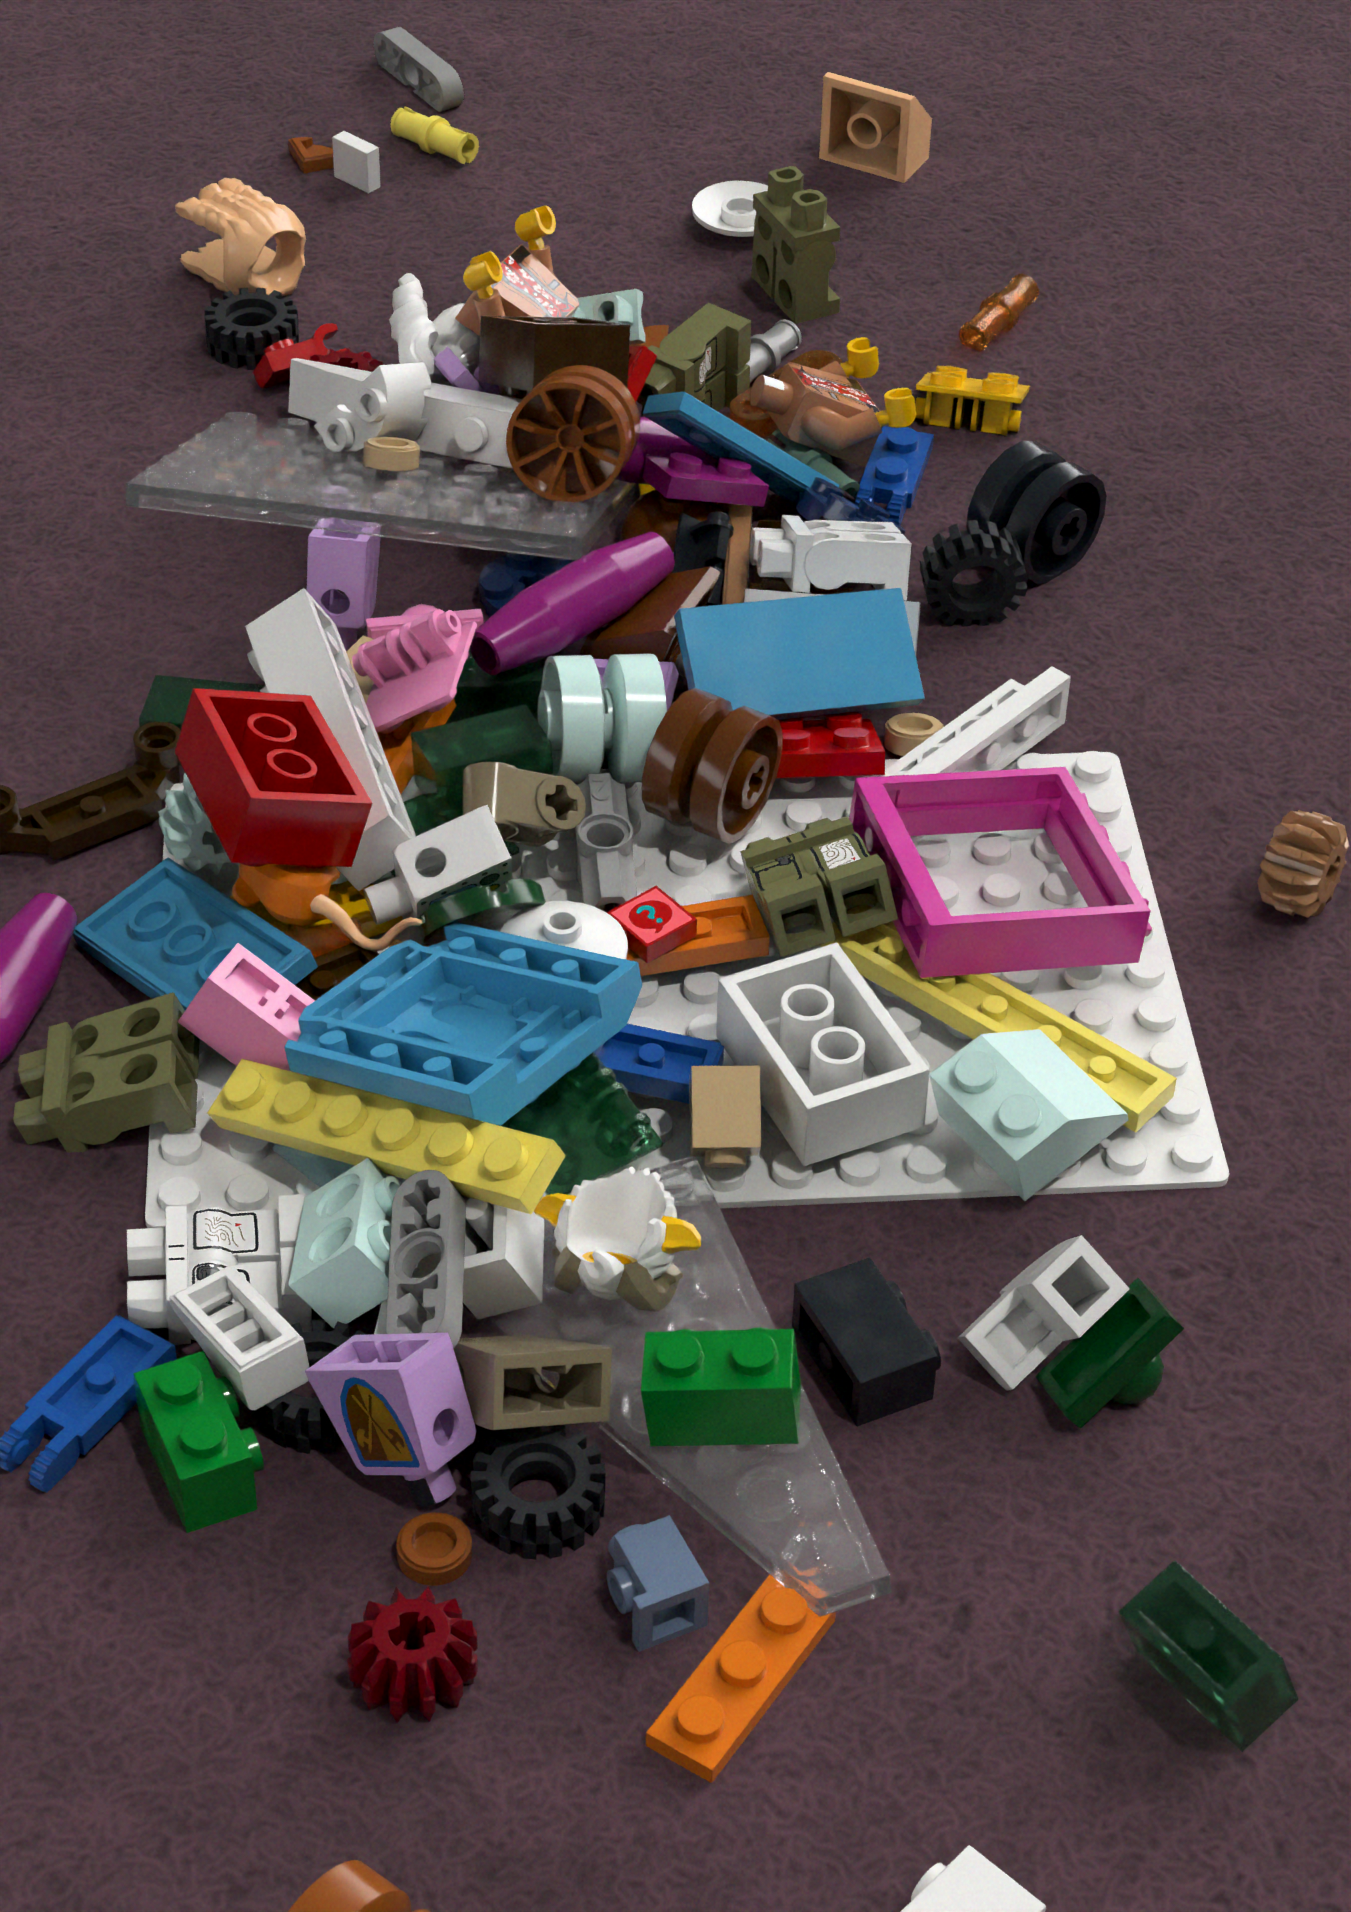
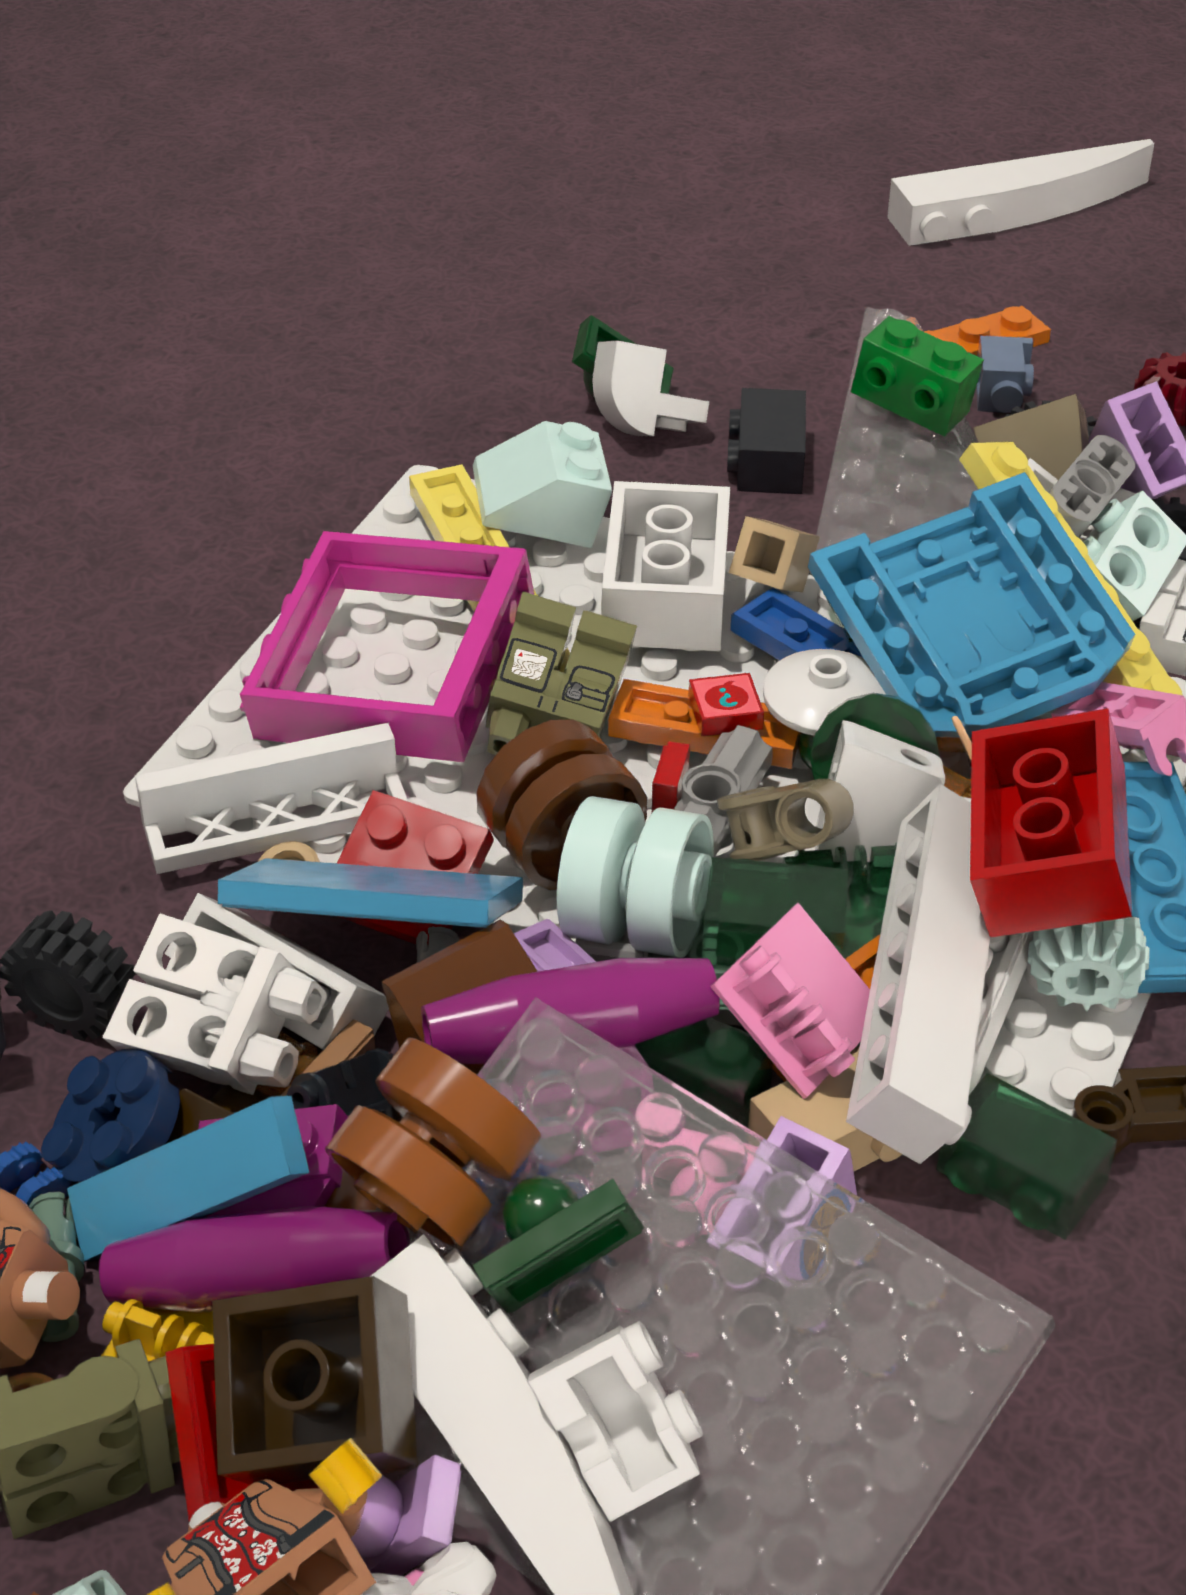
camera: 150 degrees left, 0 degrees up
(391, 454) = (651, 1307): tan tile -> none
(464, 449) = (553, 1237): none -> dark green tile
(619, 1238) = (926, 468): white hair -> none
(652, 856) = (669, 775): none -> red tile
(1209, 1655) = (707, 237): clear green brick -> none
(1303, 863) = (117, 593): medium nougat gear -> none

